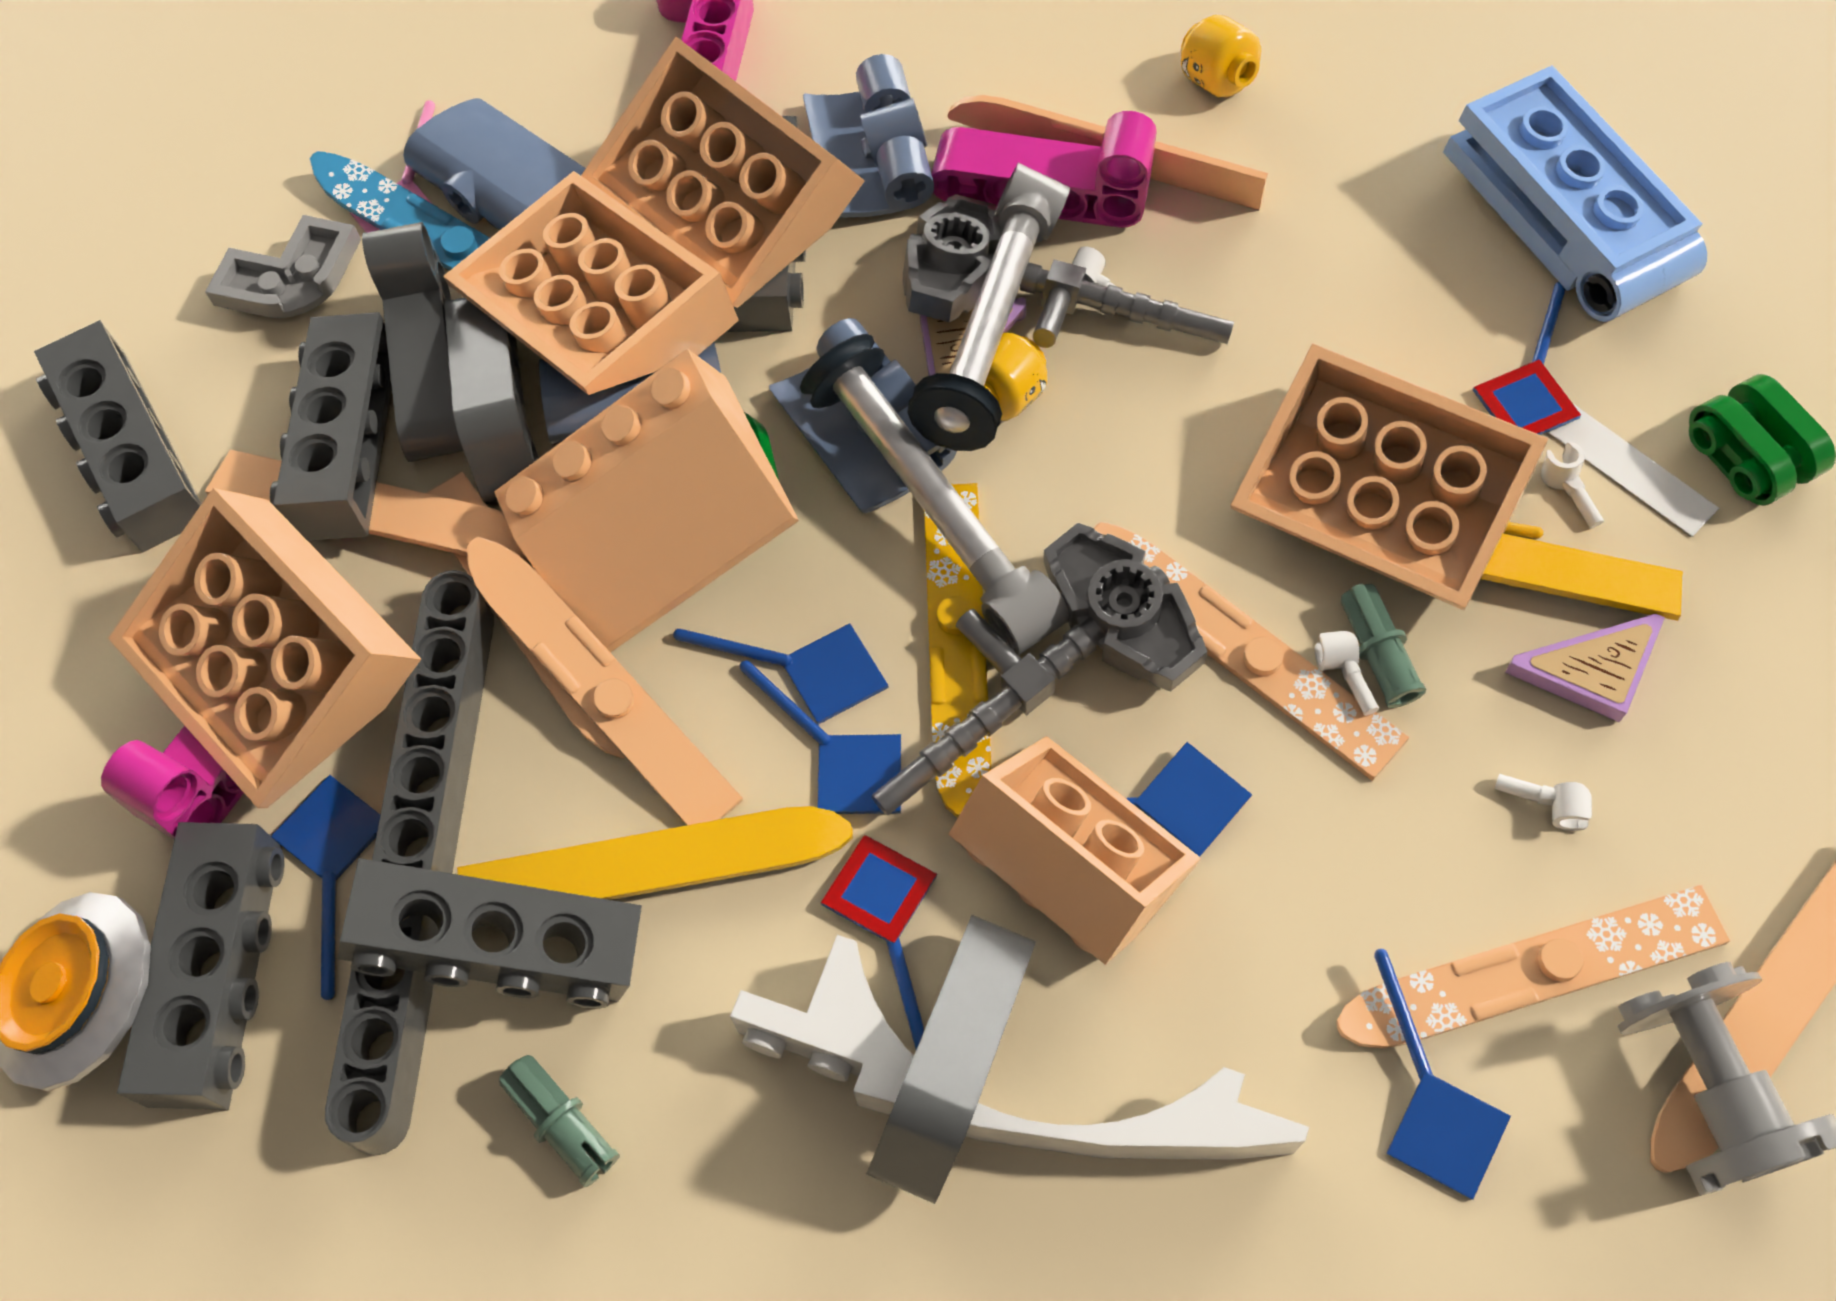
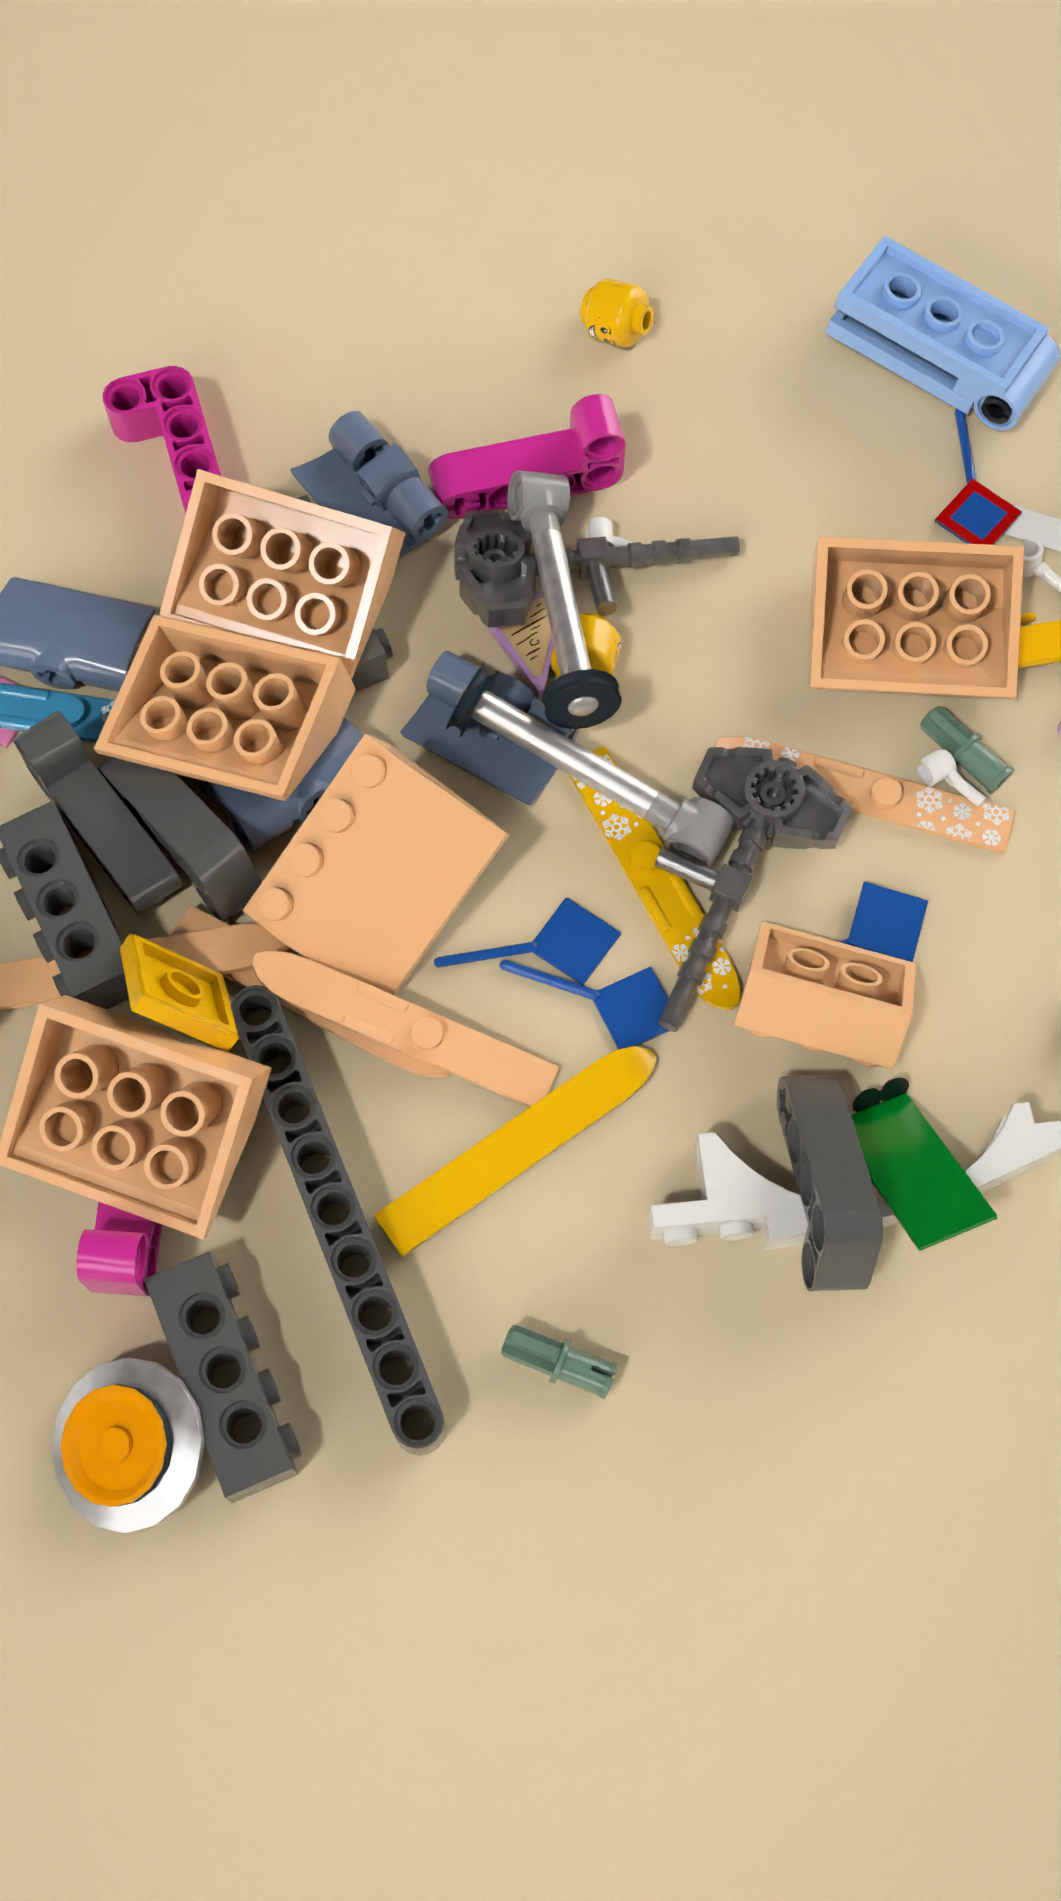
camera: 30 degrees left, 5 degrees up
(328, 837) = (252, 1237): blue piece -> none
(372, 543) = (178, 992): none -> yellow tile
(458, 904) = (518, 1213): dark grey brick -> none
(881, 895) = (702, 1093): piece -> none
(1065, 1088) = (915, 1168): none -> green piece
(1170, 163) = (513, 426): light nougat piece -> none

